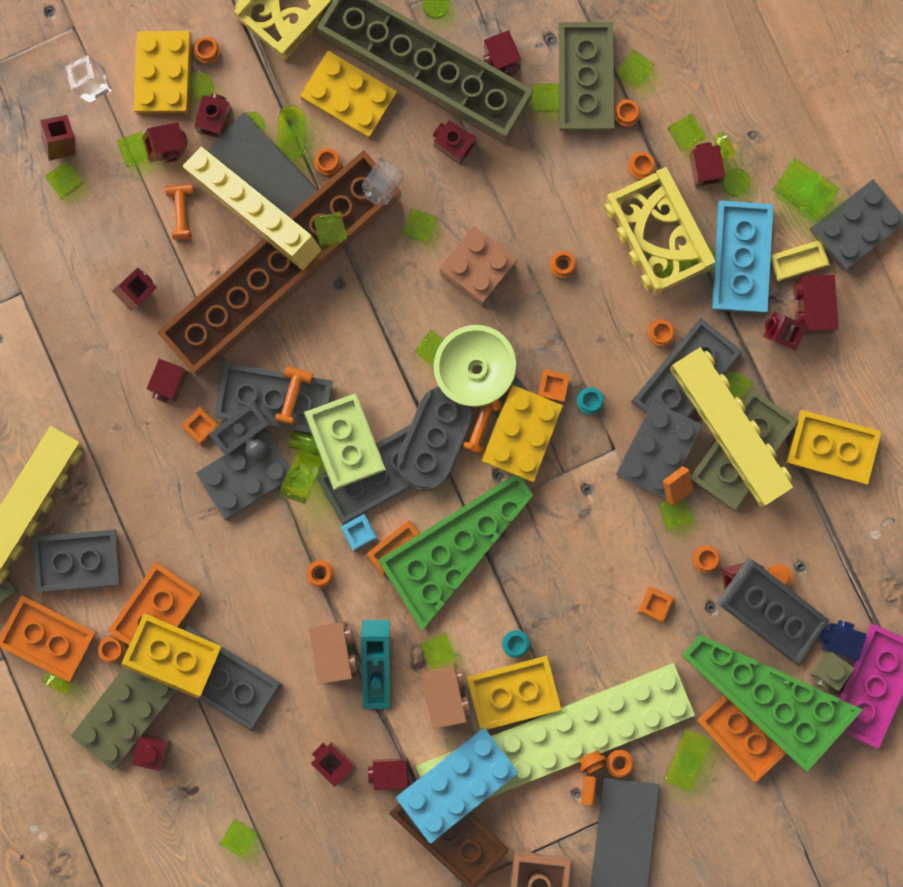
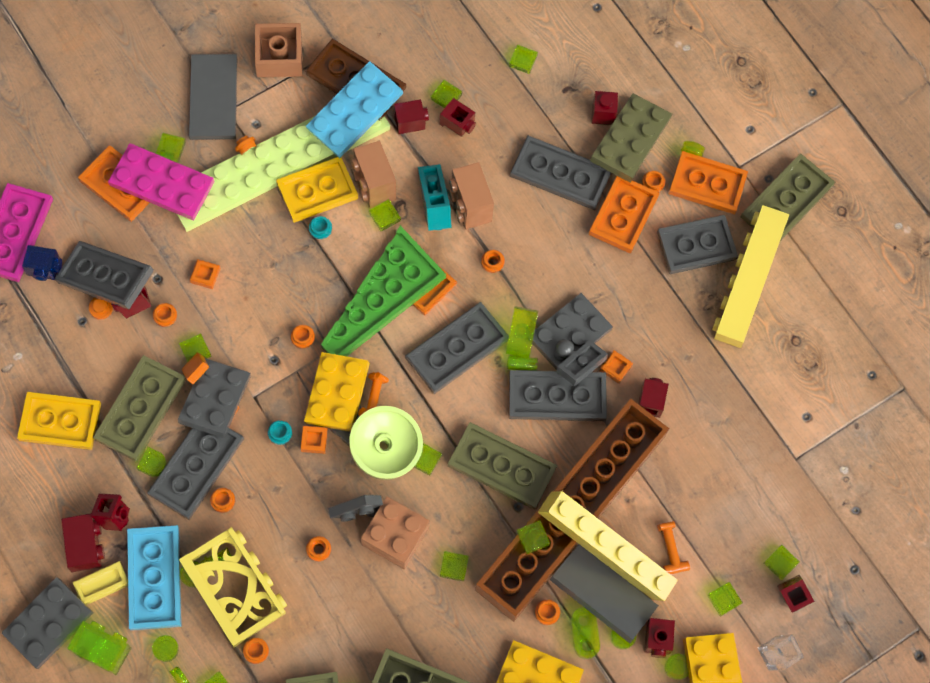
camera: 165 degrees right, 15 degrees down
(134, 288) = (697, 469): dark red brick -> none
(165, 142) = (697, 604): dark red brick -> none
(171, 656) = (603, 174): yellow plate -> none
(297, 377) = (540, 413): orange piece -> none
(341, 801) = (445, 93): none -> clear neon green tile
(344, 441) = (490, 365): yellowish green tile -> none
(349, 327) = (502, 465): none -> olive plate
(358, 532) = (465, 298): medium azure tile -> none
(382, 182) = (493, 583): clear brick -> none
(433, 441) = (414, 376): dark grey tile -> none
(455, 150) = (424, 649): dark red brick -> none
(509, 294) = (361, 505): none -> dark grey plate
(552, 511) = (302, 336): none -> orange plate
(588, 789) = (246, 123): orange tile -> none
(626, 769) = (220, 143): orange plate -> none
(697, 723) = (161, 181): none -> dark pink plate
(707, 164) = (194, 658): dark red brick -> none
(731, 427) = (153, 419): light yellow brick -> none
(784, 708) = (89, 200): bright green wing -> none
(831, 671) = (51, 235): olive brick -> none

